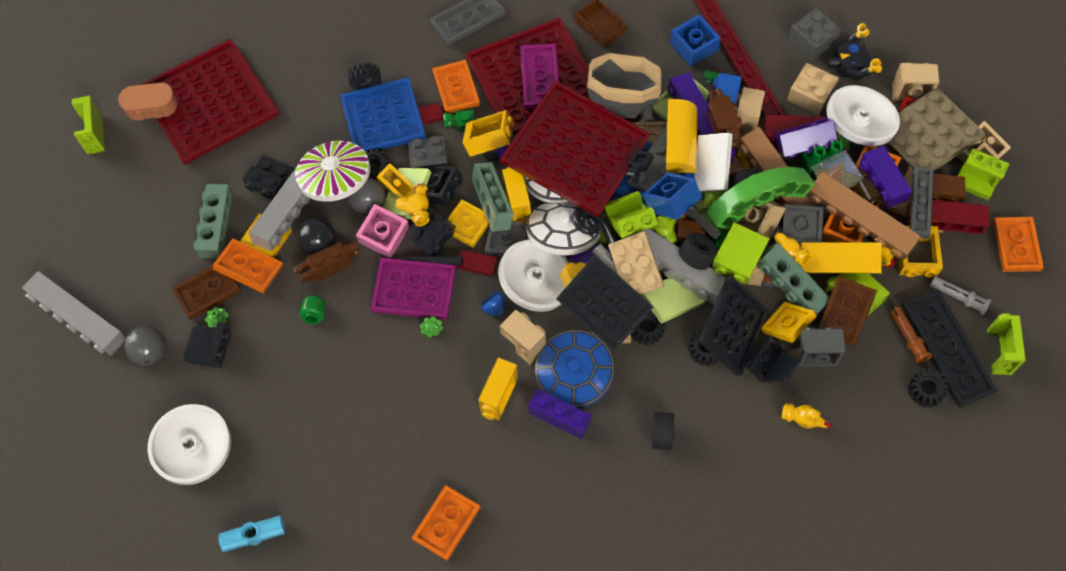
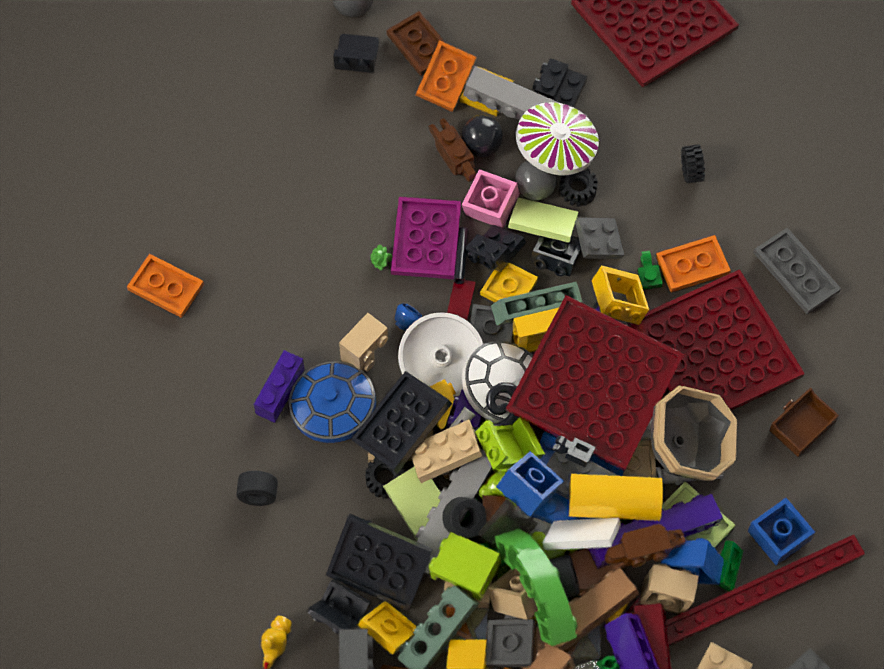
camera: 85 degrees right, 0 degrees up
(189, 444) = (248, 49): white dish -> none
(215, 316) = (388, 56): bright green plant -> none
(222, 196) = (509, 44): sand green brick -> none
(239, 537) = (155, 106): medium azure piece -> none
(312, 309) = (398, 142): green head -> none
(383, 115) = (645, 189): blue plate -> none
(395, 182) = (550, 205): yellow slope -> none
(415, 205) = (517, 224): yellow animal -> none
(430, 113) = (653, 233): dark red tile -> none
(498, 389) = (303, 322): yellow window -> none
(538, 72) = (712, 349): magenta plate -> none
(793, 248) = (474, 626): yellow animal -> none

